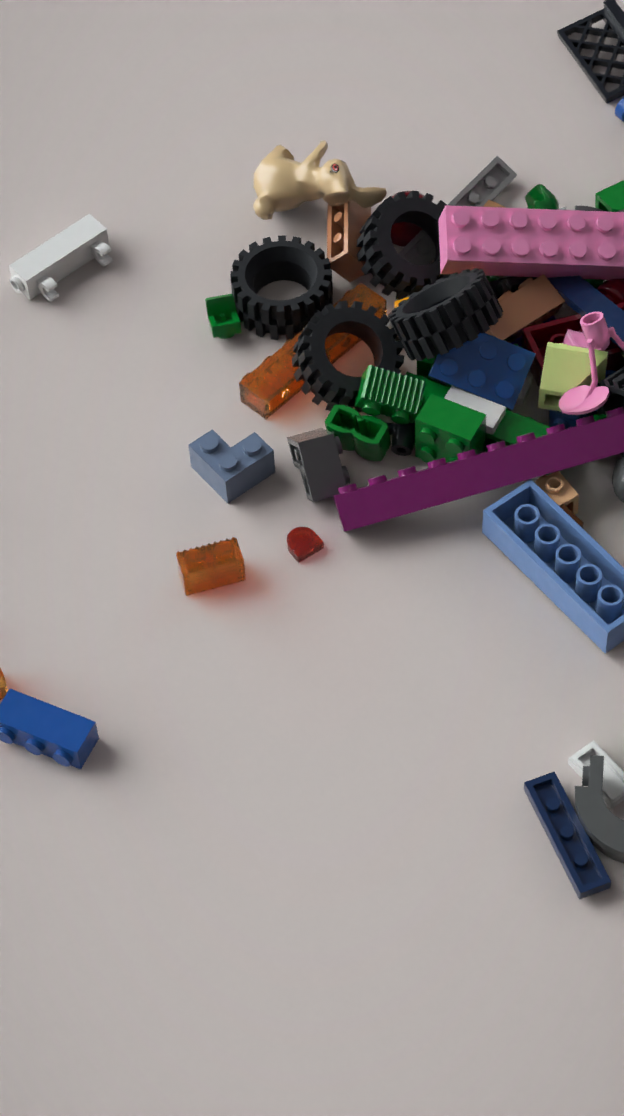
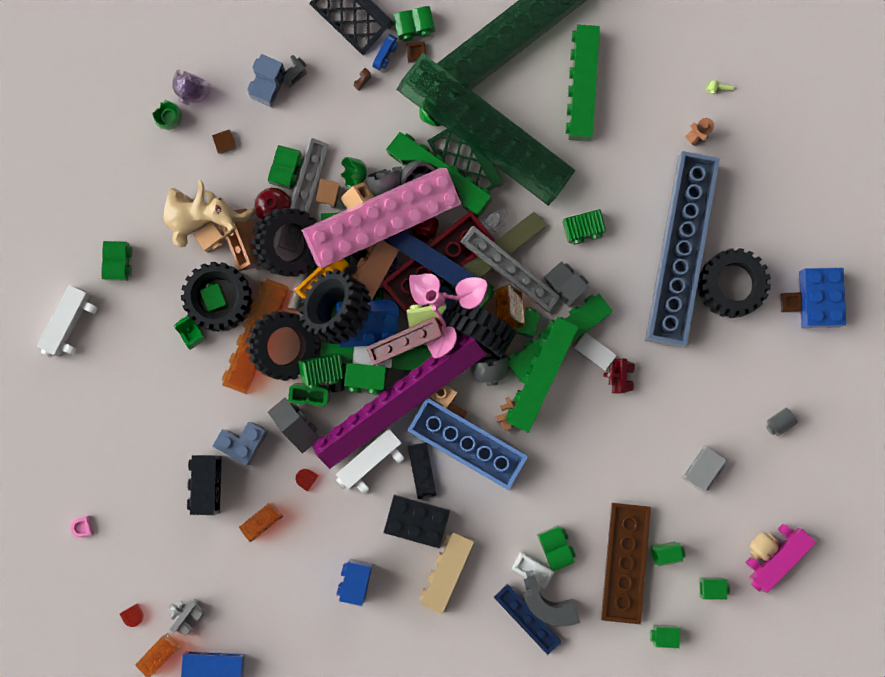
camera: 25 degrees left, 30 degrees up
(36, 648) = (180, 624): none -> light grey hips
(154, 489) = (204, 484): none -> black brick
(164, 214) = (116, 261): none -> green brick
(277, 284) = (214, 297): none -> green brick
(305, 222) = (210, 237): none -> light nougat brick
(314, 88) = (167, 116): none -> green hair
(316, 681) = (355, 582): none -> blue brick
(357, 64) = (189, 87): none -> clear purple cylinder
(374, 136) = (224, 141): none -> reddish brown tile
(409, 543) = (368, 459): none -> white brick
(445, 178) = (285, 167): none -> green brick
(446, 641) = (416, 521): none -> black brick
(463, 725) = (447, 572): none -> tan brick
(468, 84) = (267, 81): none -> sand blue brick
(482, 585) = (421, 470): none -> black plate
(506, 90) = (294, 74): none -> dark grey bracket
(529, 387) = (405, 341): none -> plate
(597, 122) = (365, 77): none -> reddish brown tile

